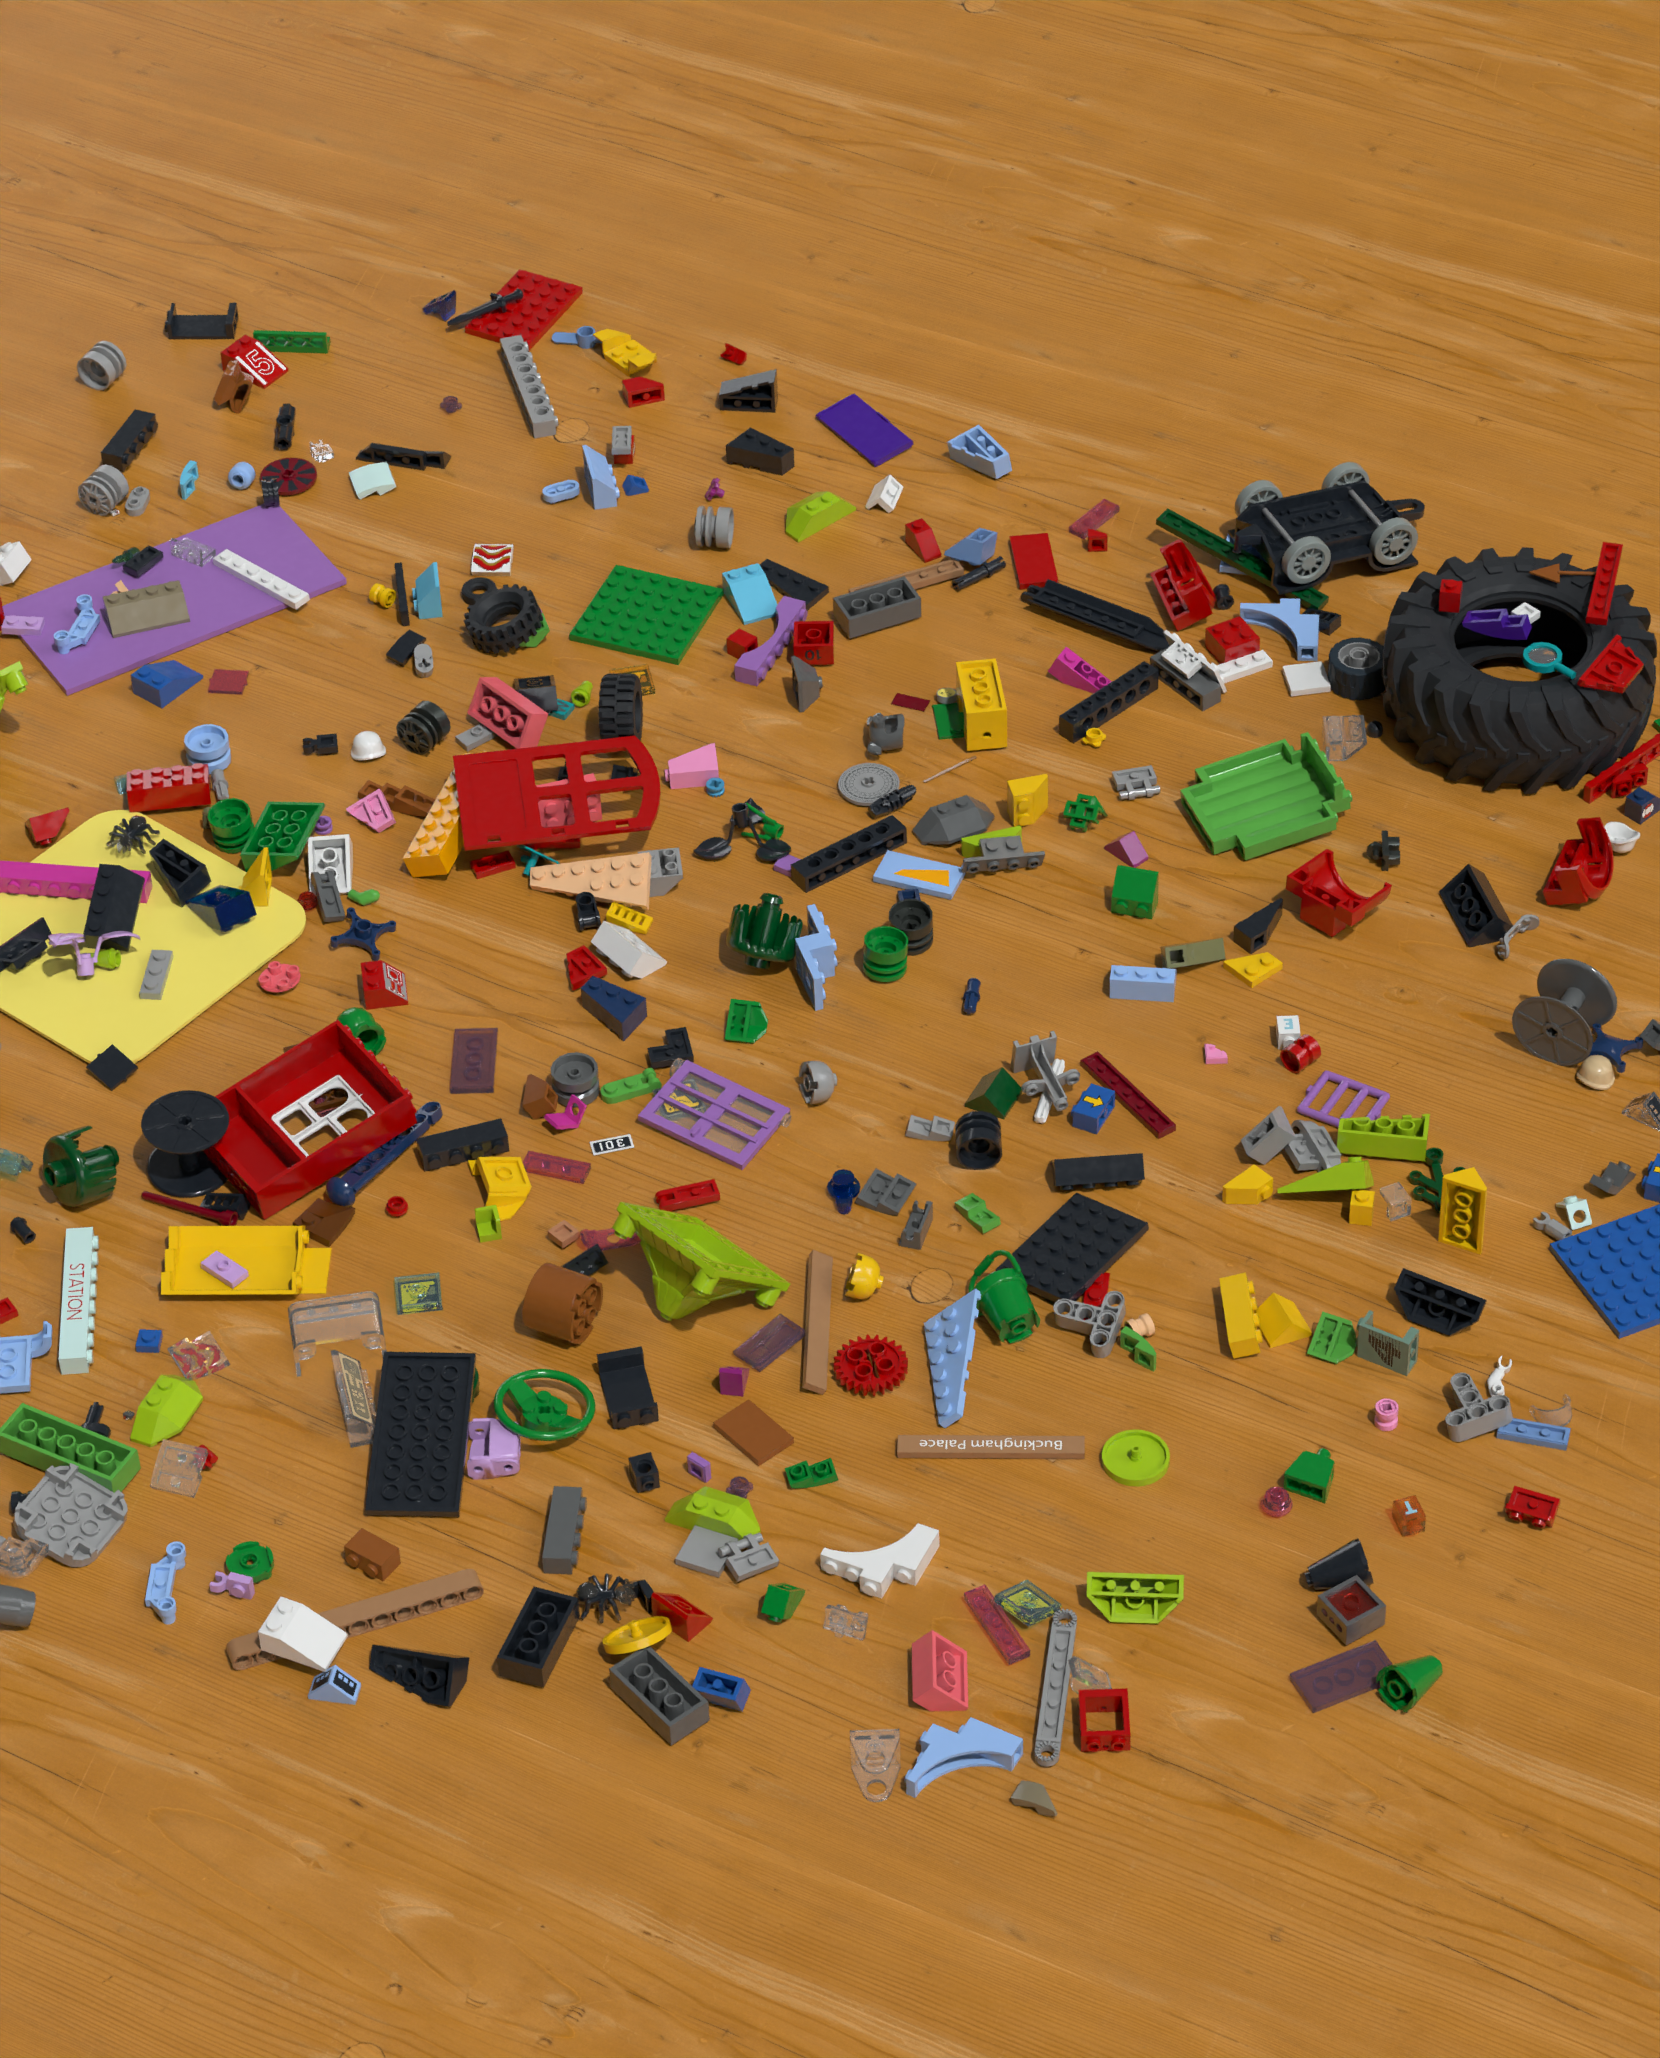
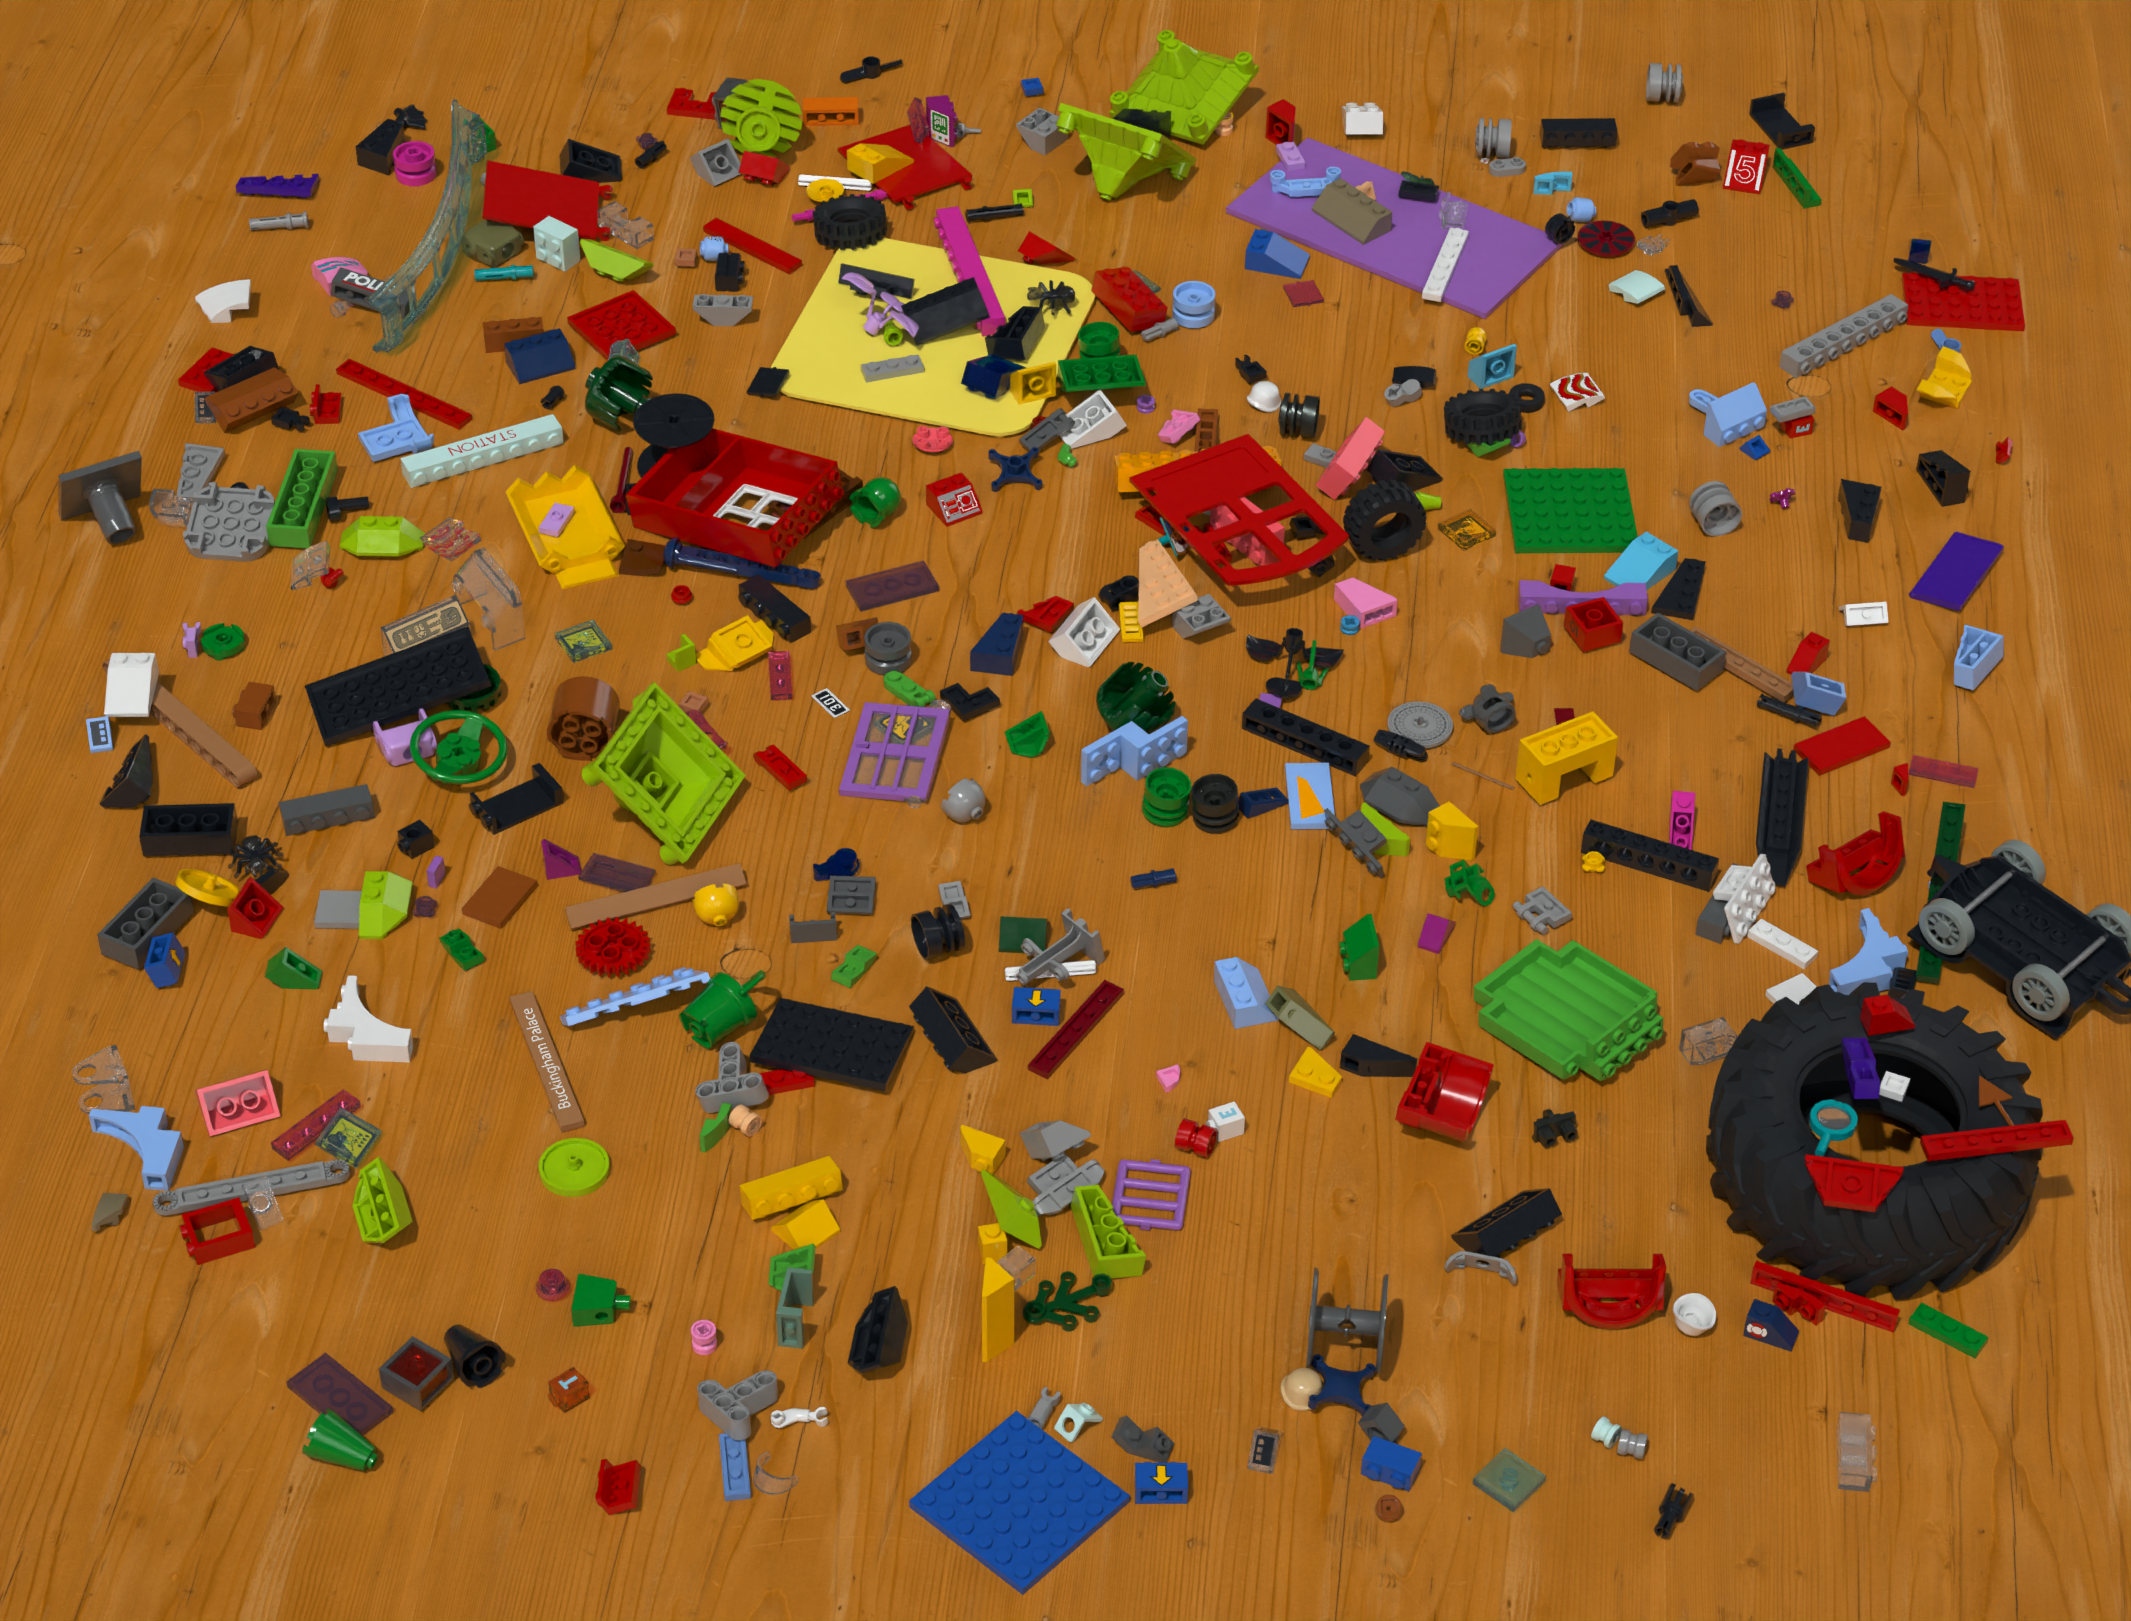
camera: 65 degrees right, 0 degrees up
(149, 1341) = (457, 506): blue plate -> none
(162, 1582) = (180, 599): light blue plate -> none
(402, 594) = (1461, 359): black tile -> none
(567, 1119) = (838, 659): dark pink bracket -> none
(750, 1562) = (332, 938): light grey plate -> none
(815, 514) = (1800, 575): lime wedge -> none
(845, 1622) = (272, 1018): clear hips -> none
(1223, 596) = (1882, 898): black bush -> none
(1231, 640) = (1810, 920): red brick -> none

